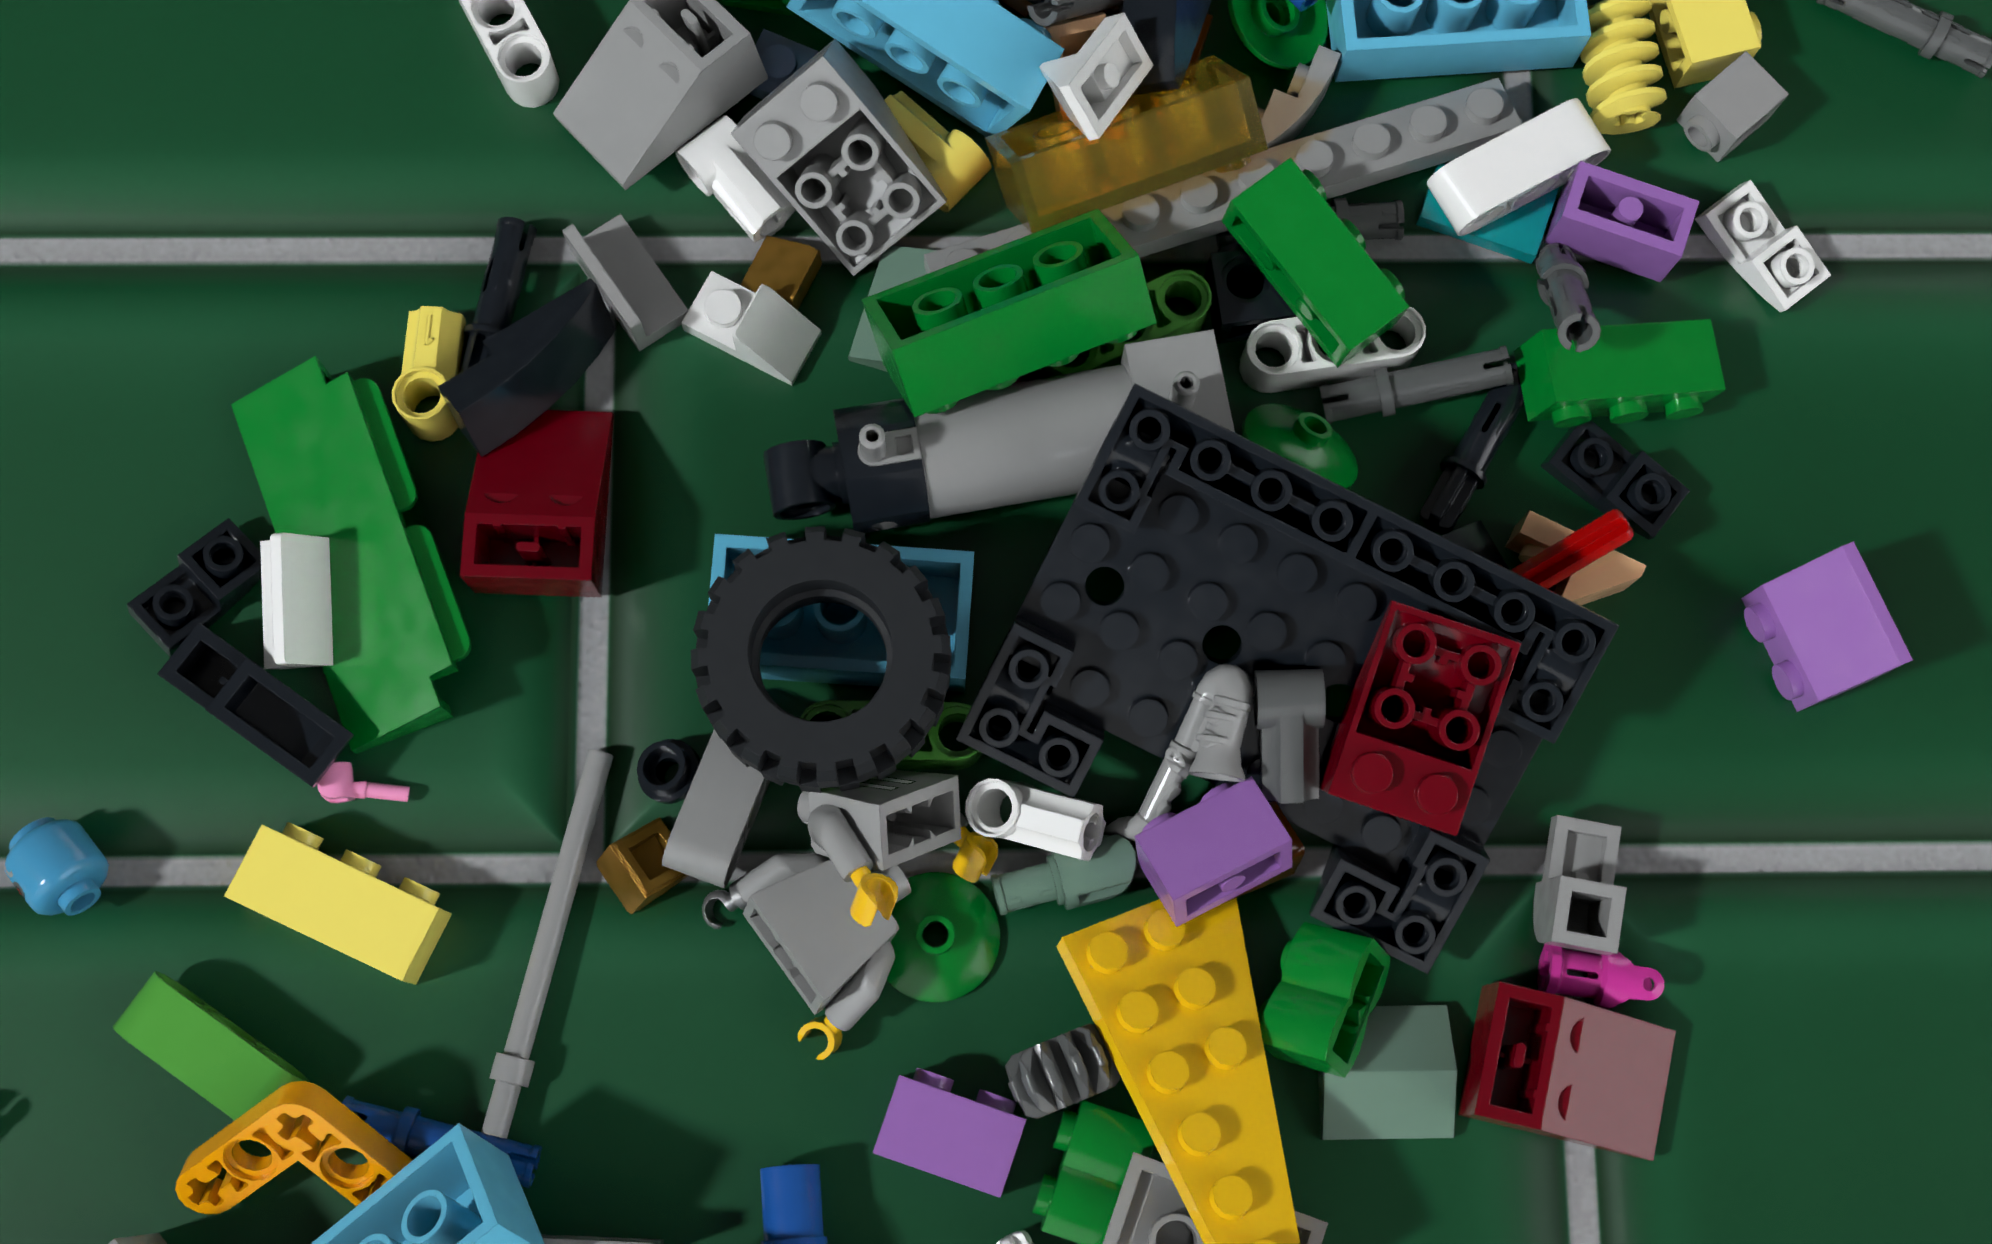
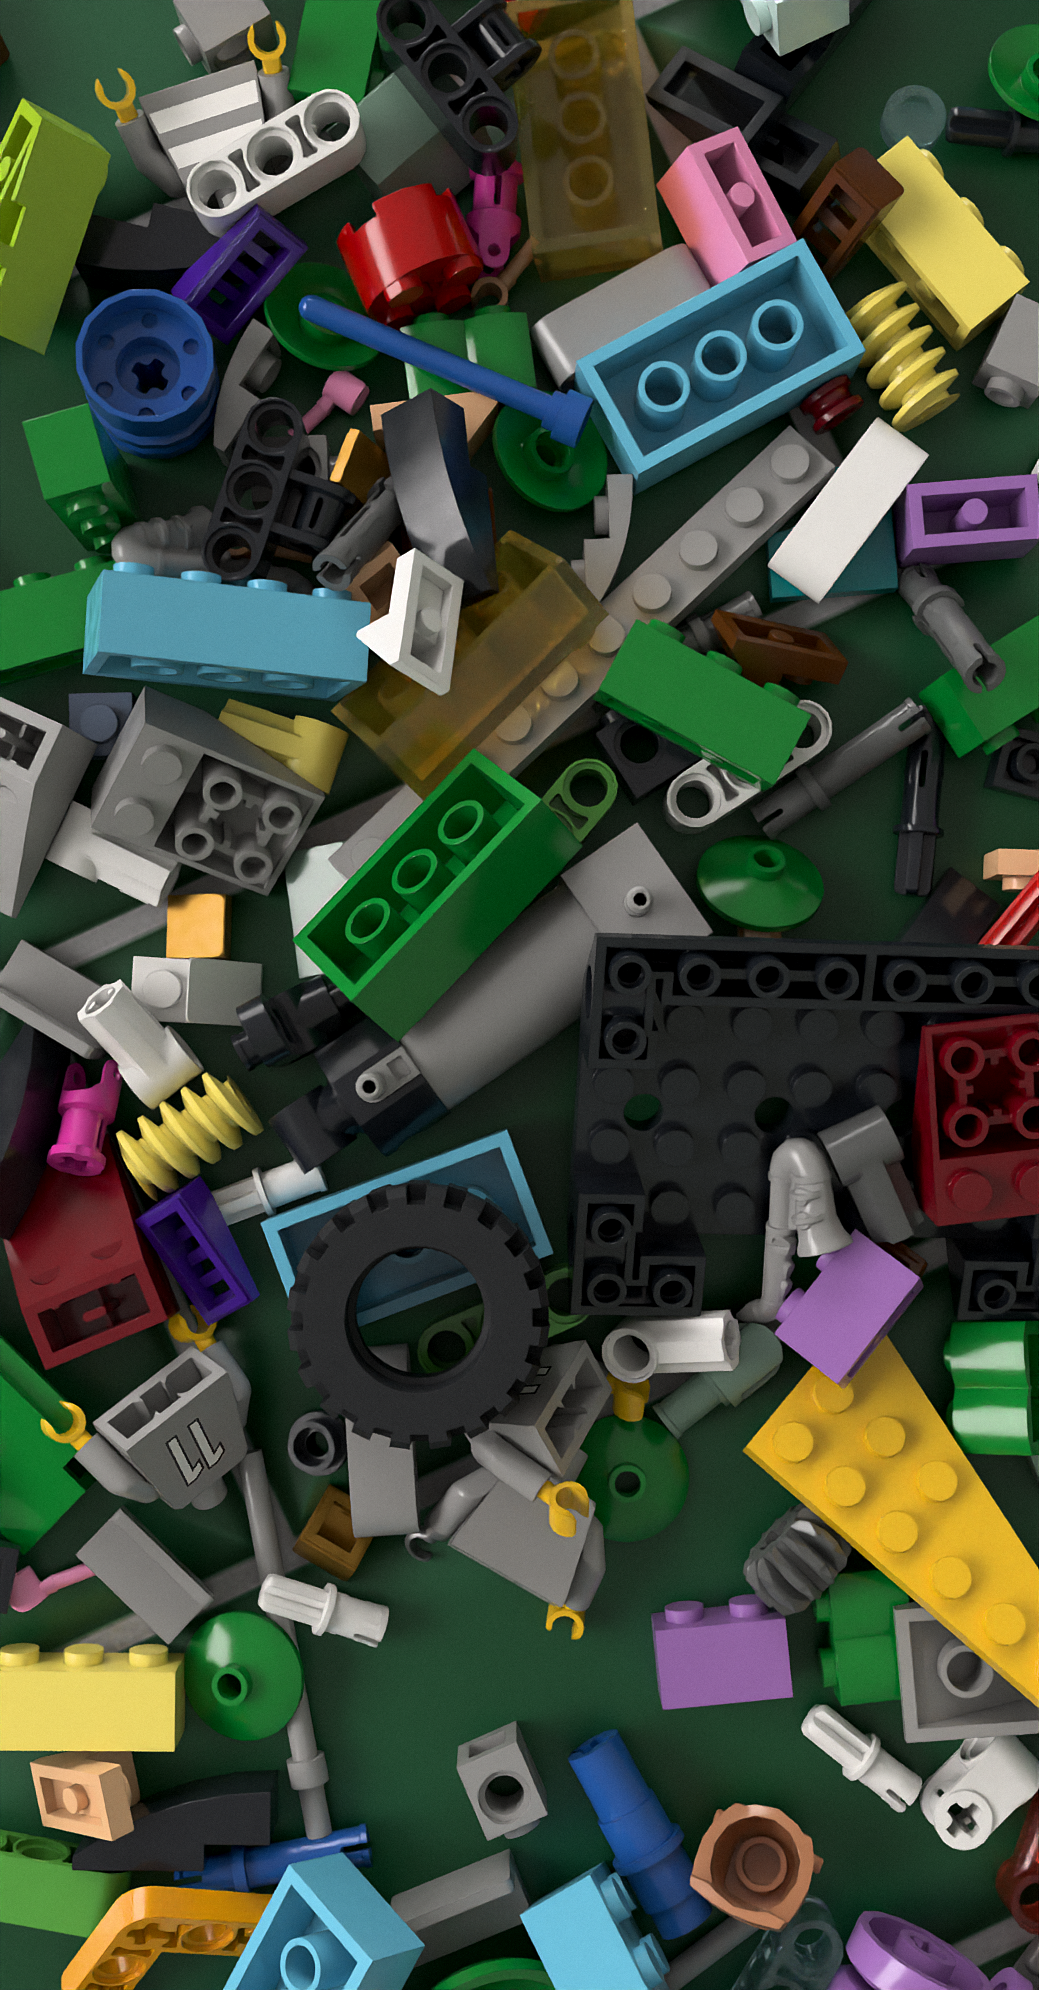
camera: 25 degrees left, 10 degrees up
(301, 989) = (87, 1792): none -> light nougat slope
(376, 1064) = (184, 1822): none -> black slope
(454, 816) = (145, 1574): none -> light grey panel
(520, 960) = (261, 1659): none -> green dish
(544, 687) = (173, 1430): none -> light grey torso
(600, 922) = (324, 1609): none -> white axle
(602, 383) = (85, 1120): none -> dark pink piece
(625, 526) = (206, 1223): none -> dark purple slope
(669, 1138) = (497, 1755): none -> light grey brick
(683, 357) = (148, 1056): none -> white piece
(684, 440) = (188, 1134): none -> light yellow piece
(702, 522) = (267, 1191): none -> white axle
(823, 380) = (291, 1023): none -> black piece
(1413, 263) = (777, 650): none -> reddish brown slope
(1543, 79) = (831, 404): none -> dark red bush

